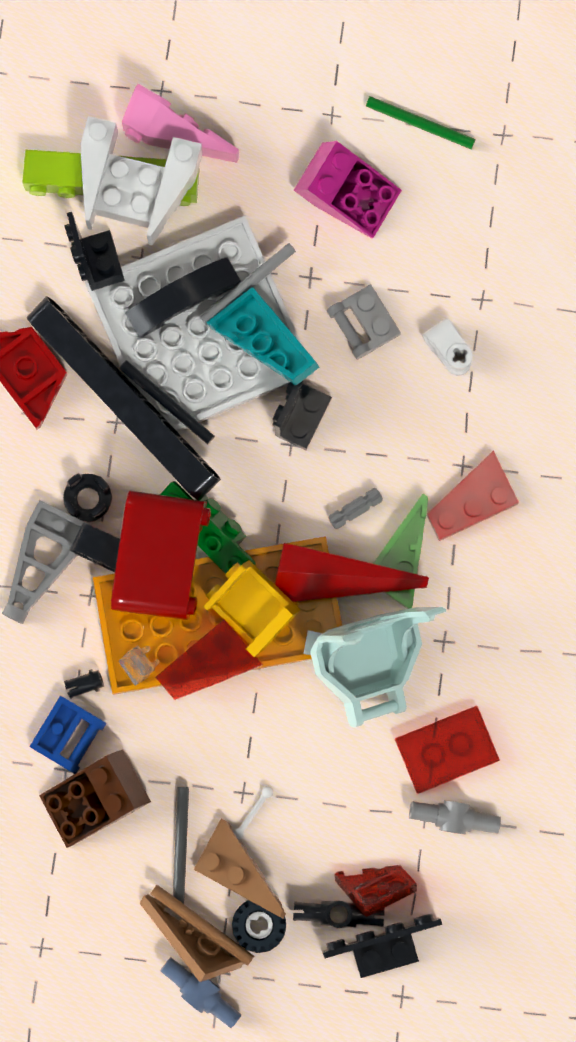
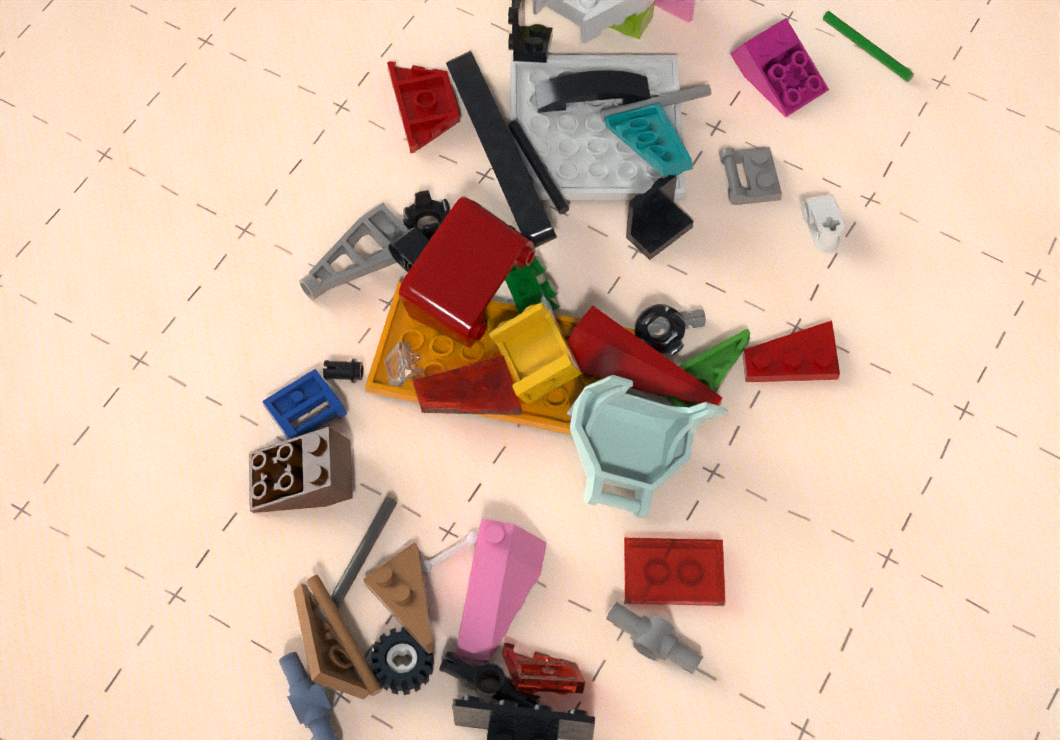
camera: 25 degrees right, 20 degrees down
(308, 822) = (501, 576): none -> bright pink wedge
(358, 532) = (668, 343): none -> black piece

